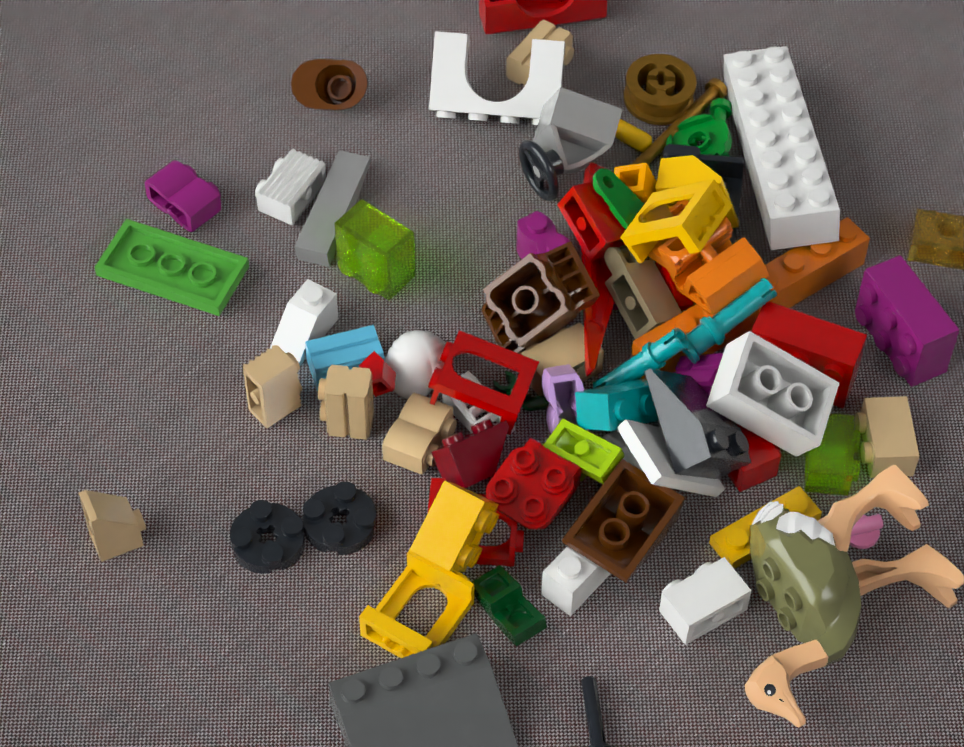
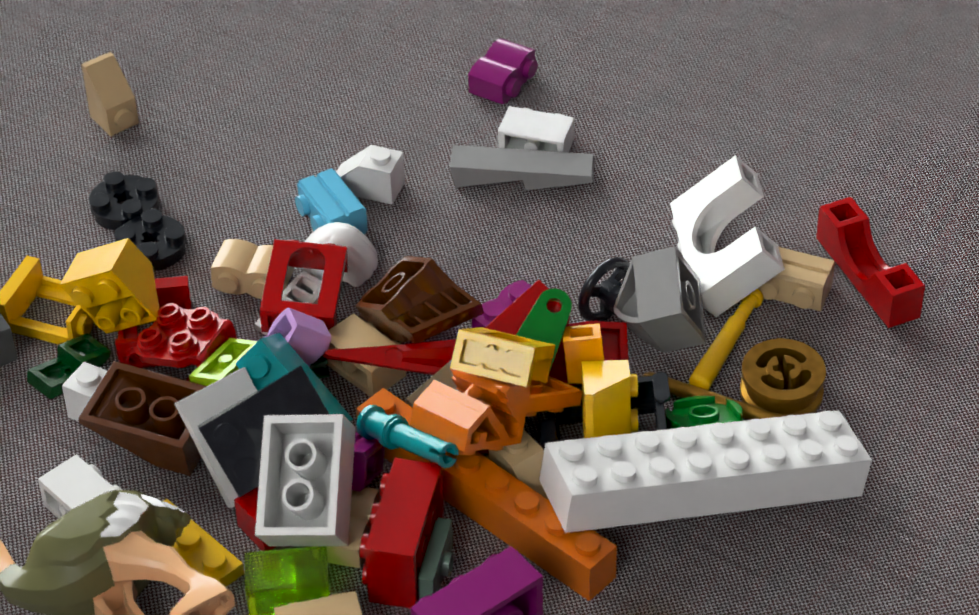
camera: 80 degrees right, 10 degrees down
(172, 267) = (414, 84): bright green plate -> none
(272, 385) = (273, 156): tan brick -> none
(329, 84) = (675, 130): reddish brown piece -> none
(347, 401) = (265, 205): tan brick -> none
(375, 249) = (457, 192): clear neon green brick -> none
(382, 374) = (303, 219): red piece -> none
(471, 457) = (222, 296): dark red slope -> none
(652, 356) = (349, 398): teal pin -> none

